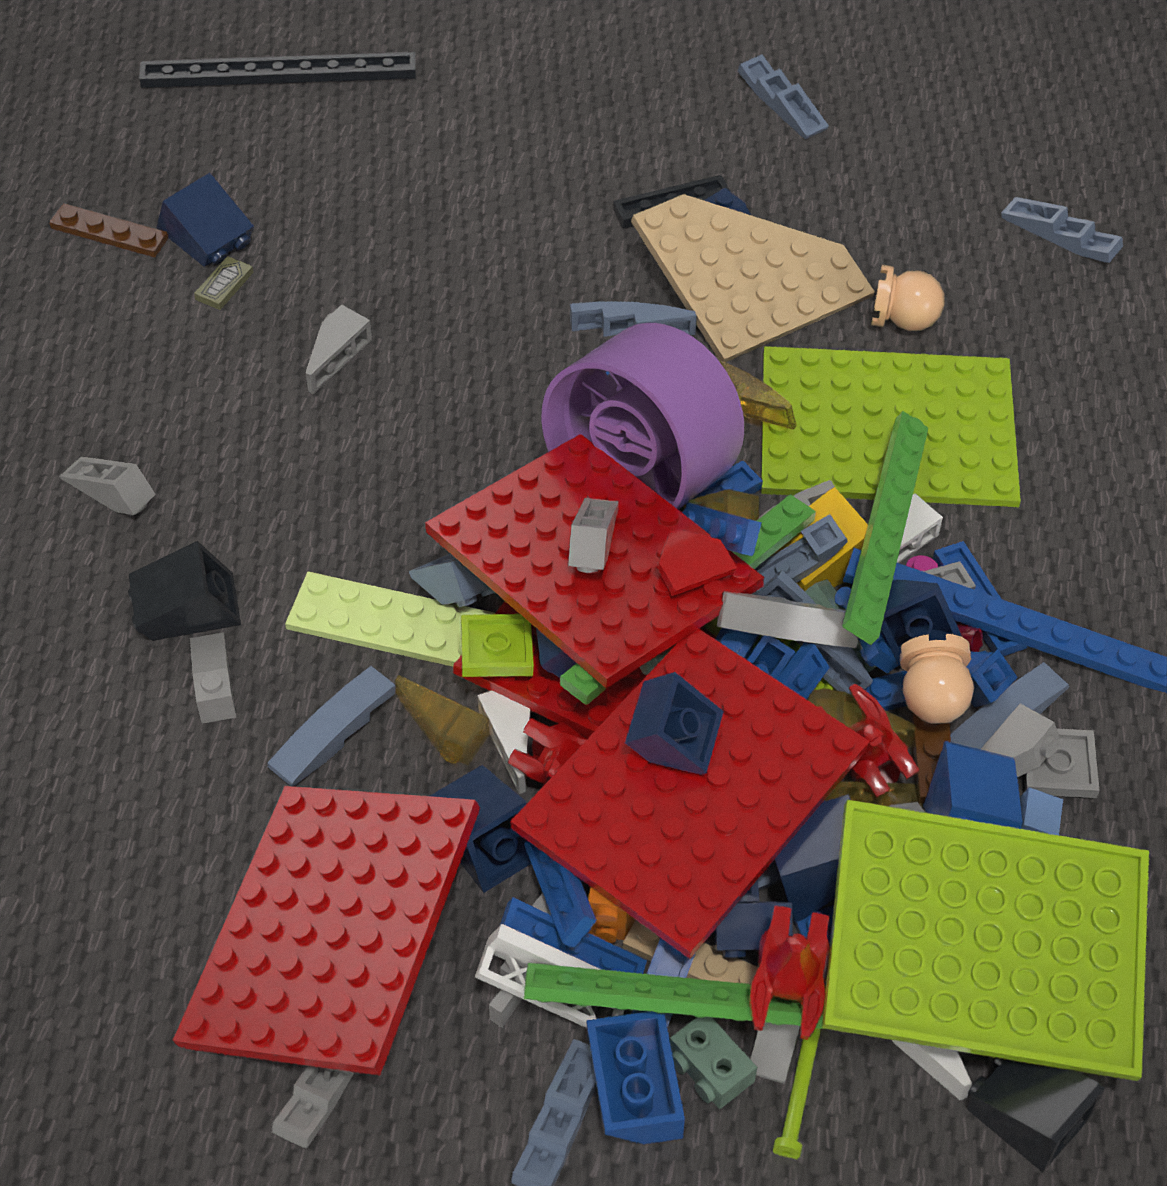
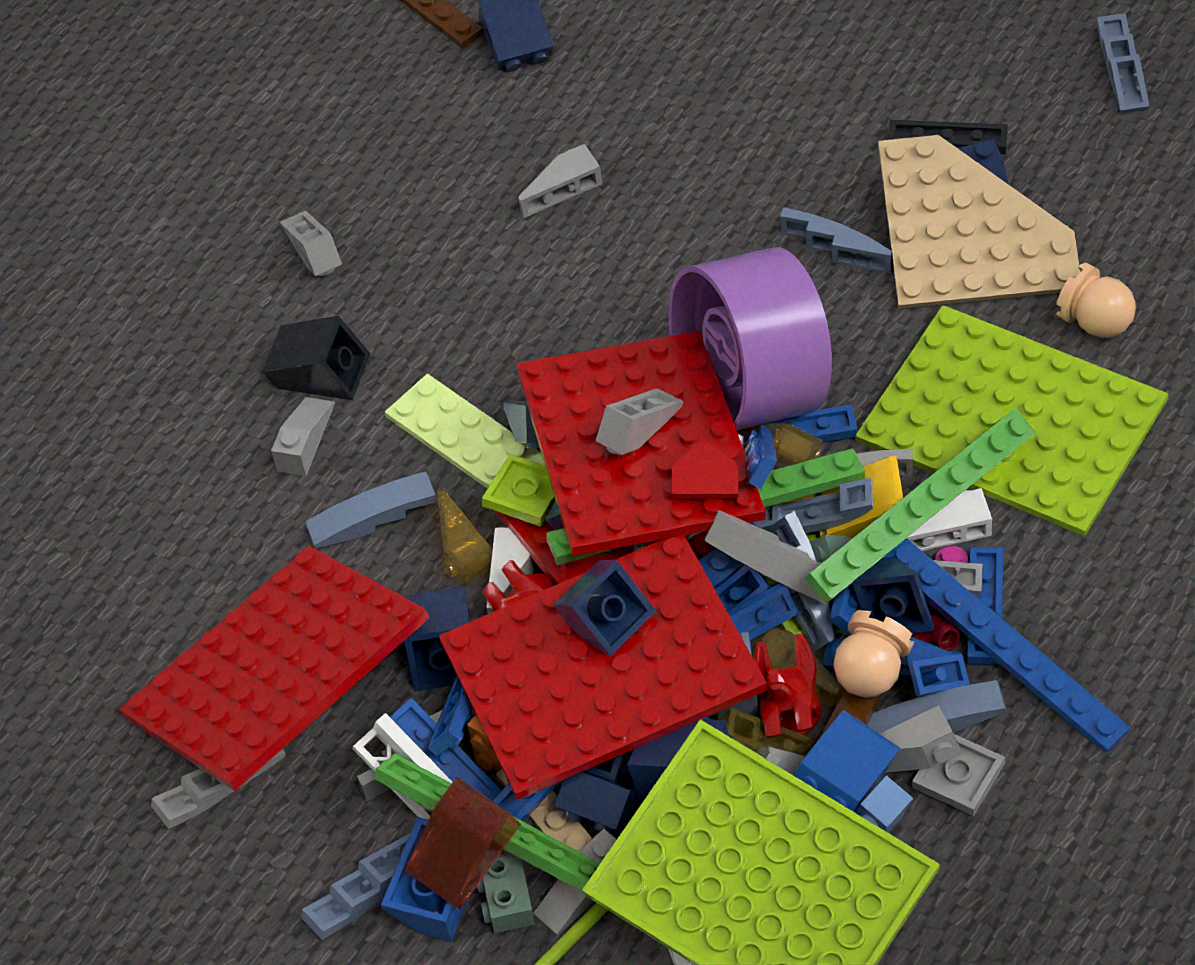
camera: 35 degrees right, 0 degrees up
(223, 283) = (505, 91): olive tile -> none
(664, 1029) = (460, 842): none -> clear red slope
(759, 399) = (887, 340): clear yellow slope -> none
(791, 970) = (584, 838): red piece -> none

